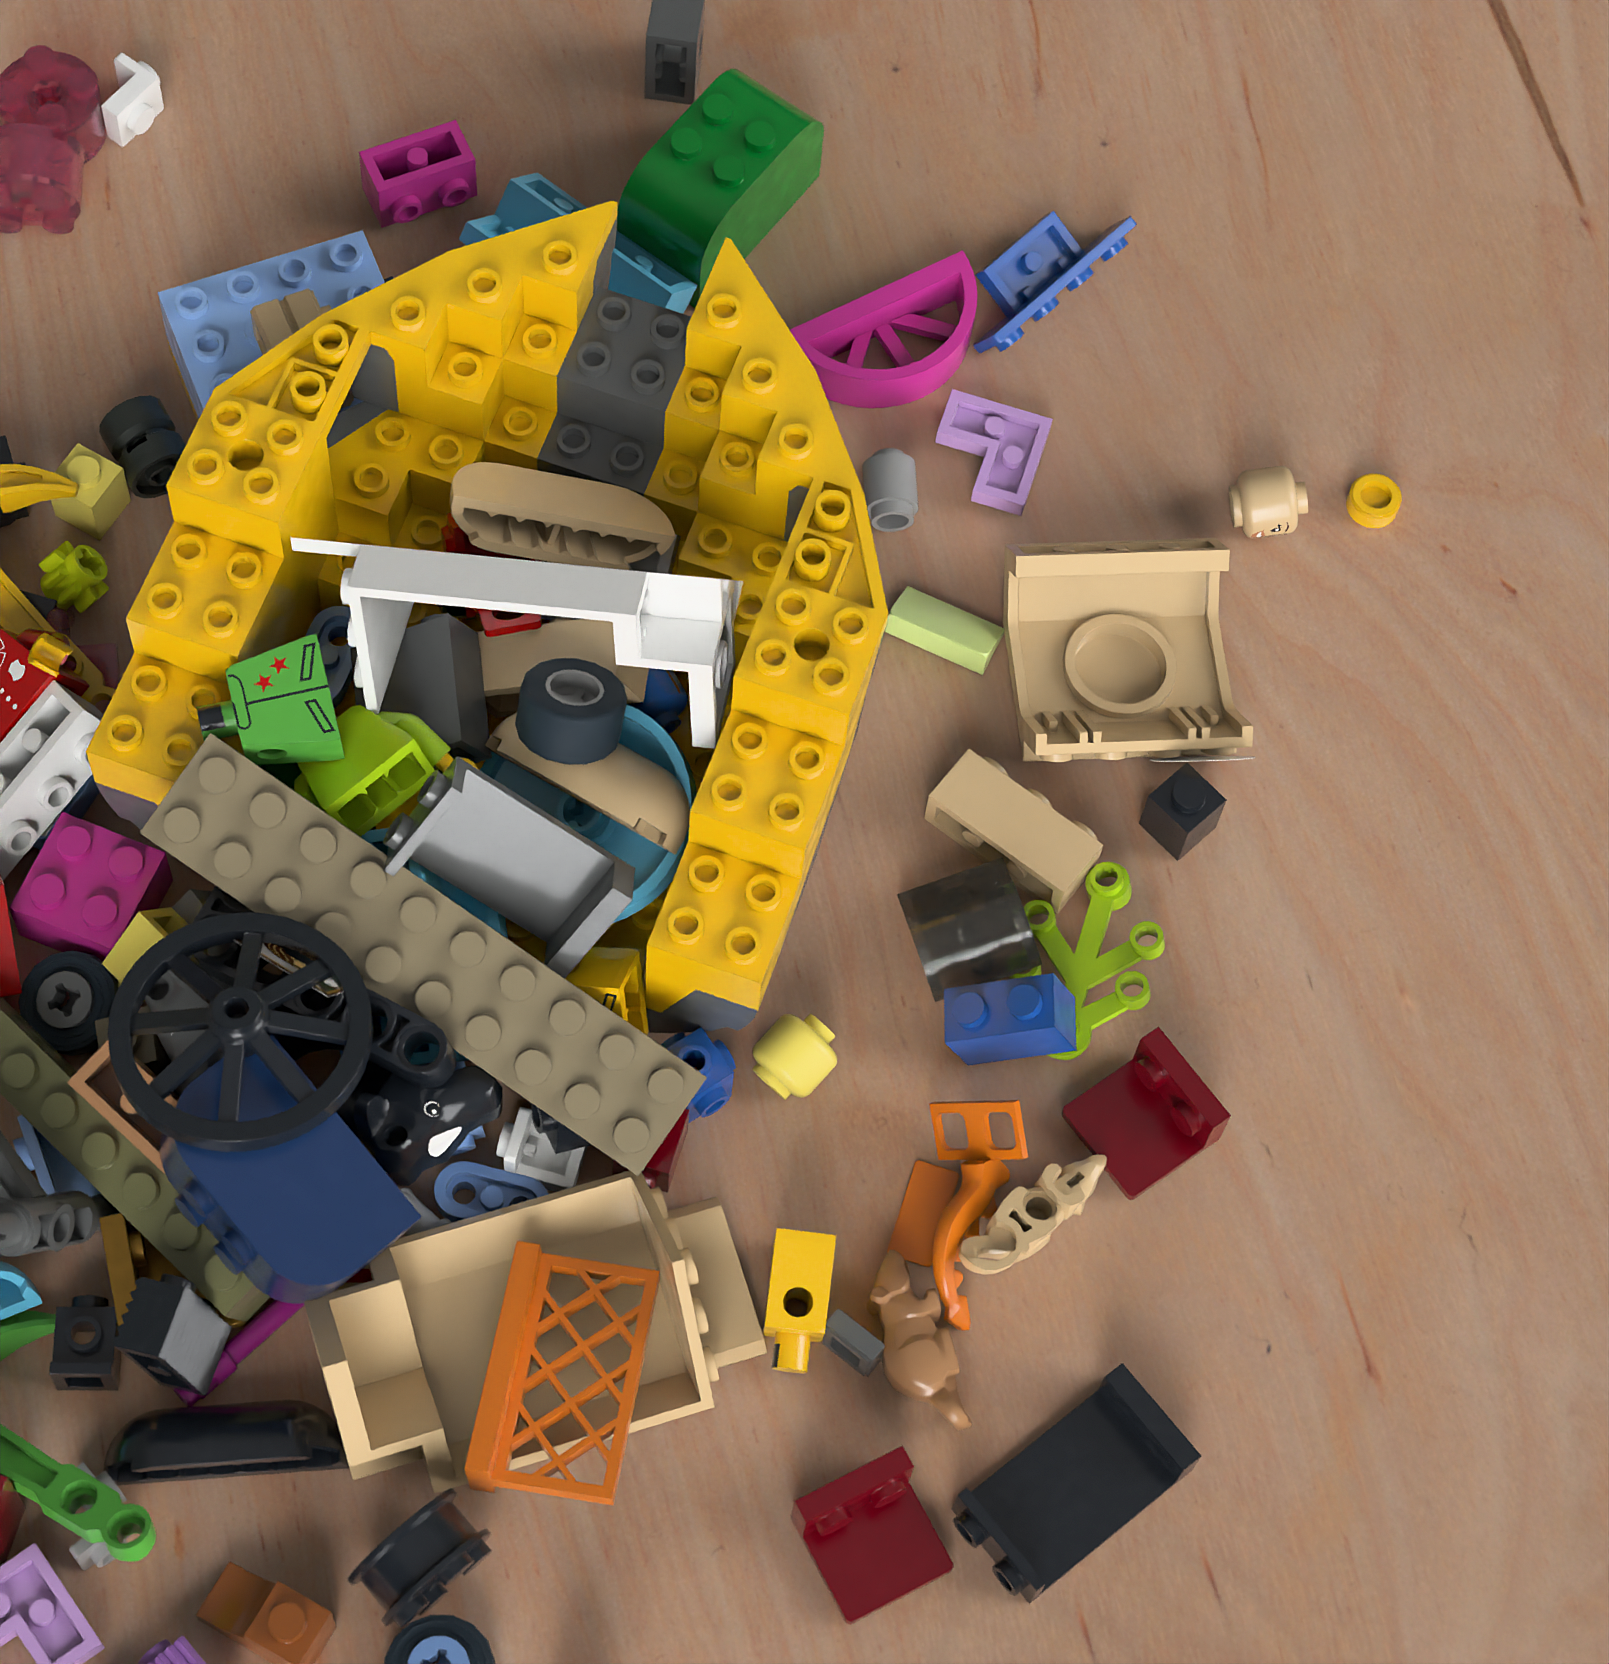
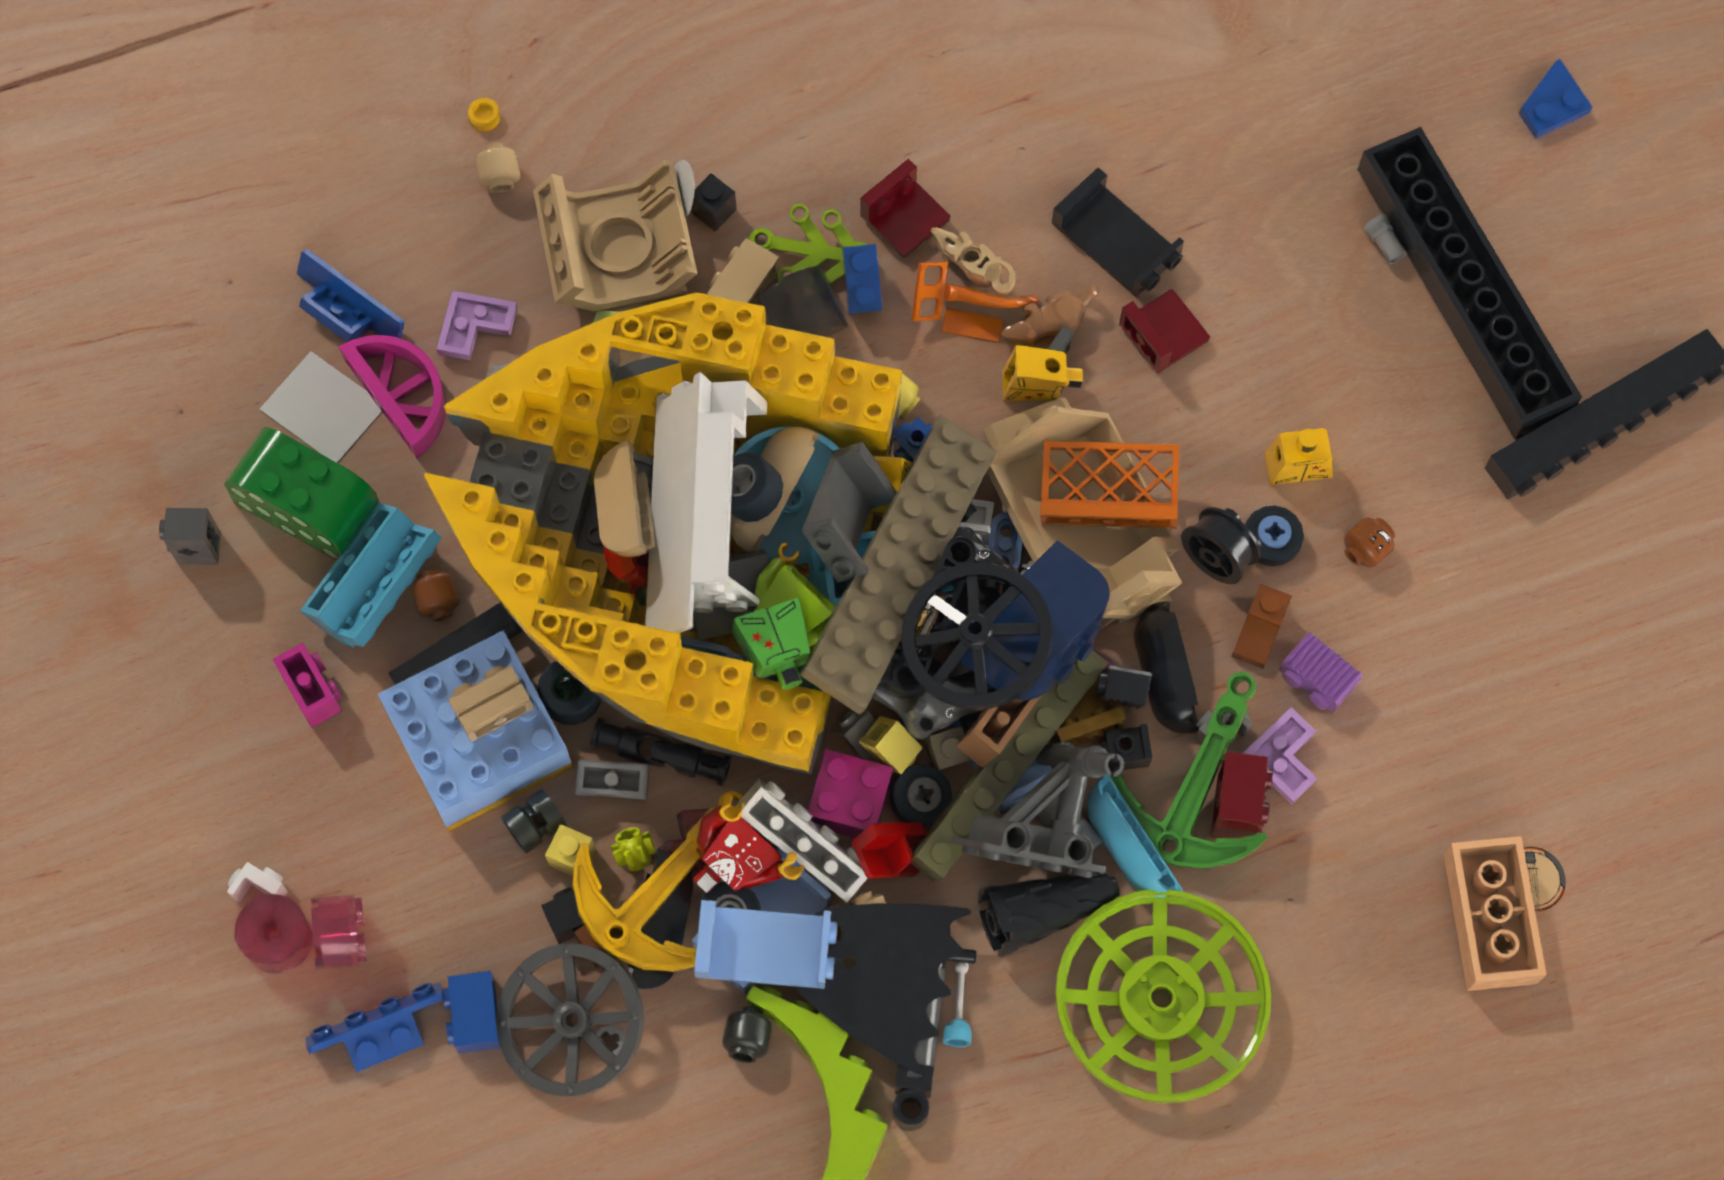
camera: 90 degrees left, 5 degrees up
(878, 238) = (322, 407): none -> white sticker

